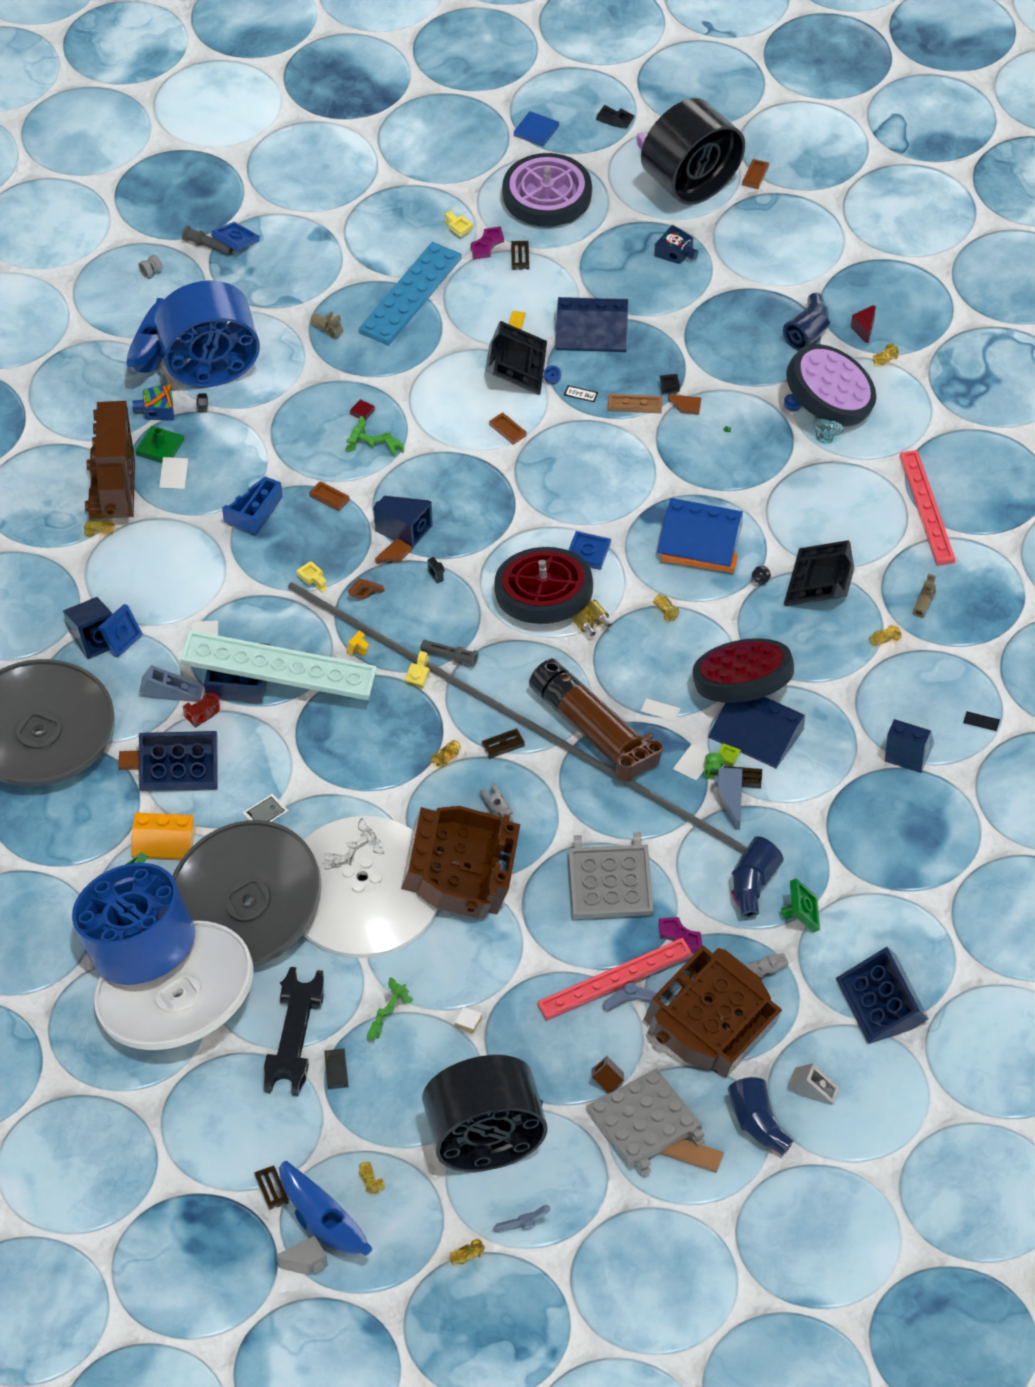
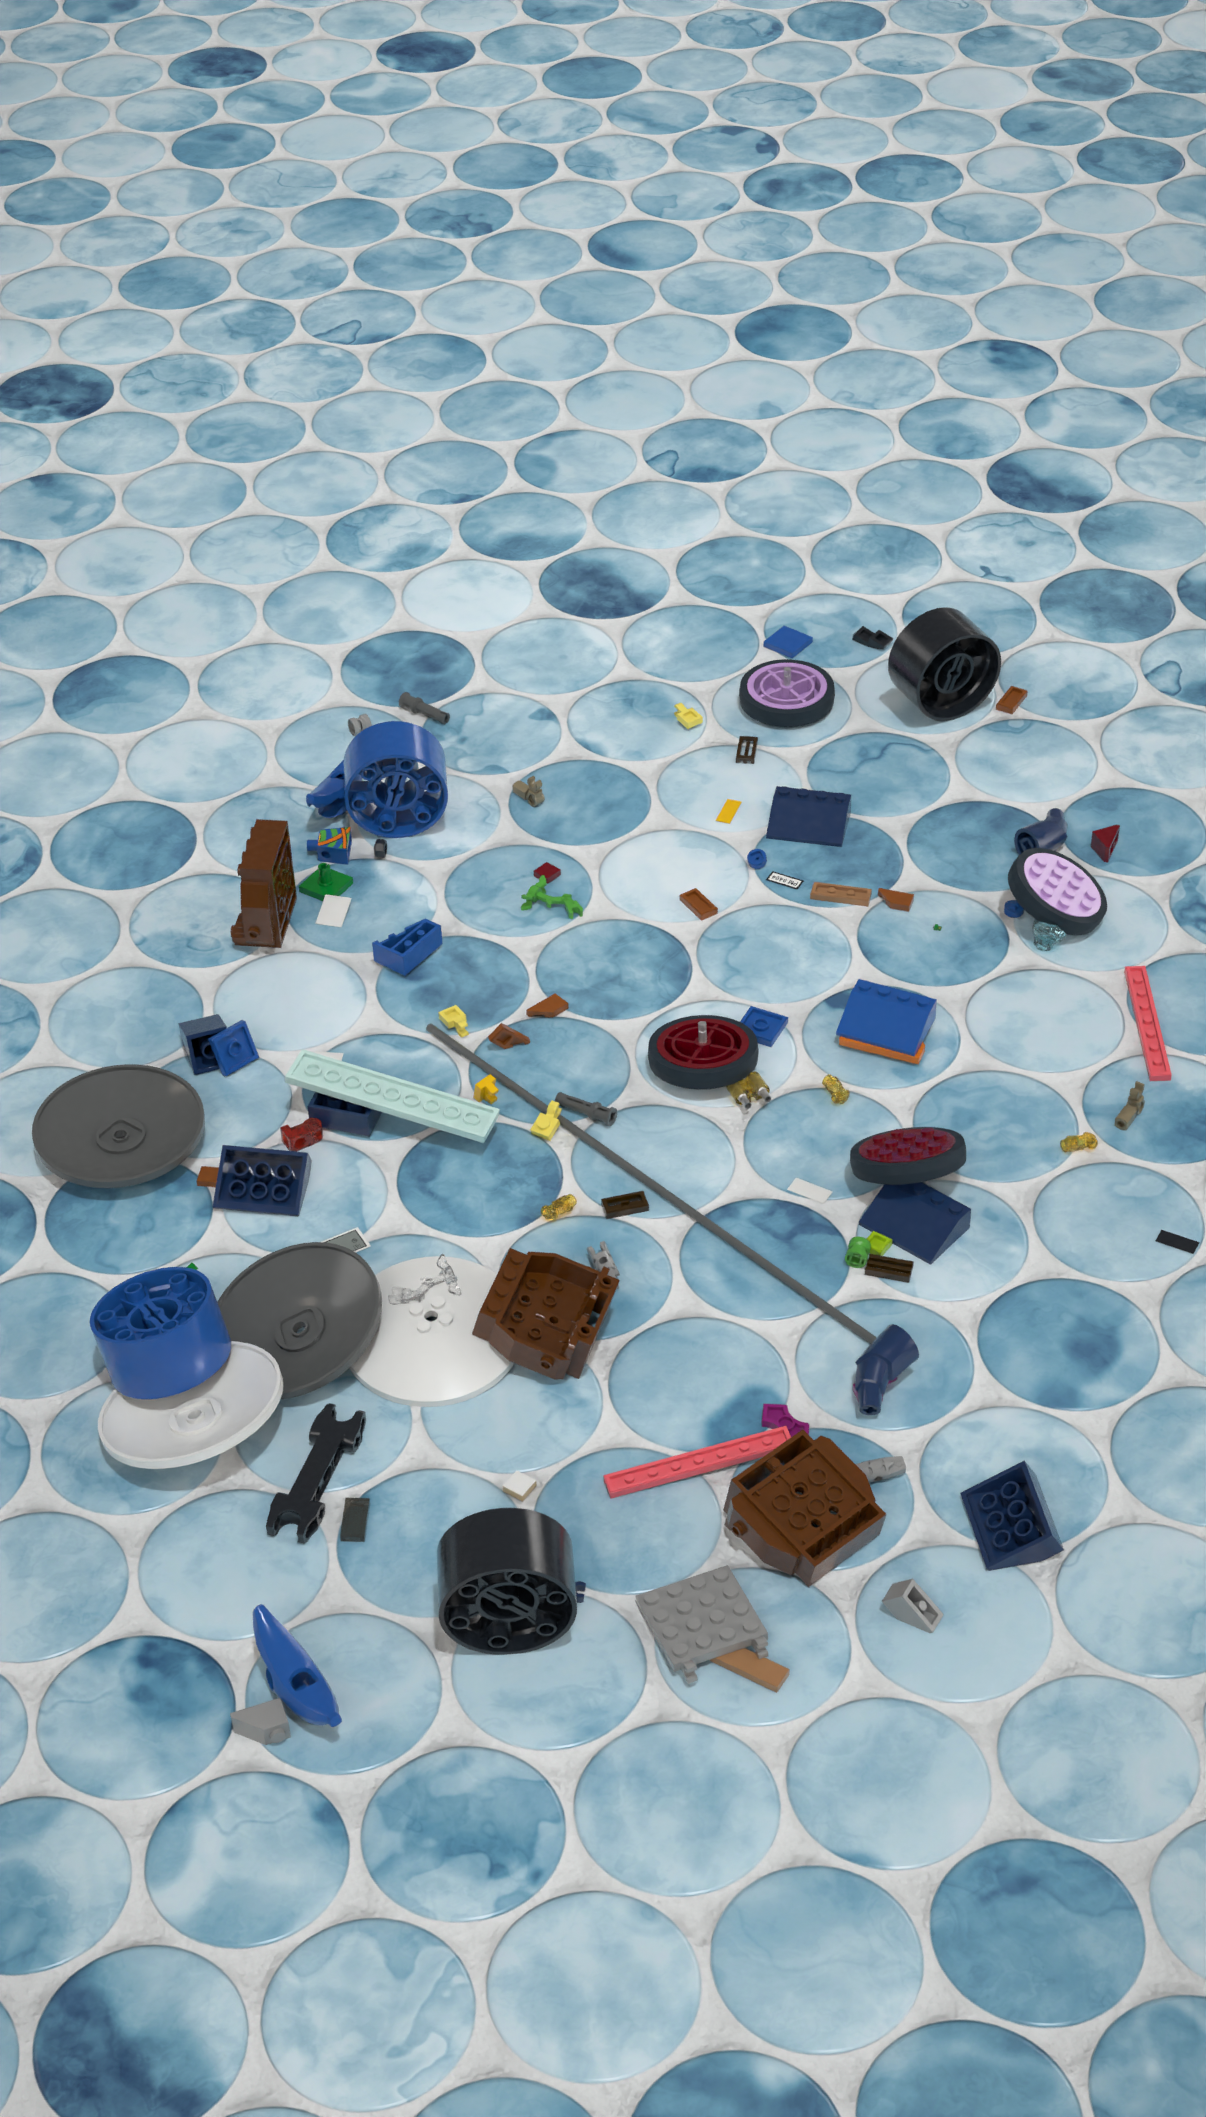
camera: 10 degrees right, 10 degrees down
(98, 527) = (242, 952): clear yellow arm -> none
(162, 835) = (224, 1252): light orange slope -> none
(170, 686) = (272, 1108): sand blue slope -> none
(235, 236) = (453, 706): blue tile -> none
(277, 1201) = (249, 1656): dark brown tile -> none
(329, 496) = (492, 948): dark orange tile -> none
(368, 1177) = (362, 1643): clear yellow arm -> none
(399, 992) = (445, 1444): bright green piece -> none
(403, 518) = (564, 973): dark blue slope -> none
(410, 293) = (622, 773): dark azure plate -> none
(435, 569) = (589, 1027): black plate -> none
(467, 1252) = (458, 1742): clear yellow arm -> none
(483, 246) = (709, 739): magenta tile -> none
(517, 357) = (722, 838): black slope -> none
(526, 1220) = (535, 1715): sand blue piece -> none
(595, 720) = (732, 1190): reddish brown piece -> none
(607, 1074) = (668, 1564): reddish brown panel -> none
(610, 880) = (715, 1357): light grey plate -> none
(628, 993) = (713, 1479): sand blue piece -> none
(669, 383) = (882, 878): black plate -> none
(675, 246) = (912, 754): dark blue torso -> none
(692, 762) = (834, 1247): white sticker -> none
(729, 791) = (871, 1278): sand blue slope -> none
(755, 1114) = (834, 1629): dark blue piece -> none
(761, 575) = (948, 1068): black plate -> none
(803, 906) = (934, 1408): green tile -> none
(821, 573) = (1016, 1073): black slope -> none
(885, 356) = (1122, 875): clear yellow arm -> none
(908, 745) = (1086, 1253): dark blue slope -> none

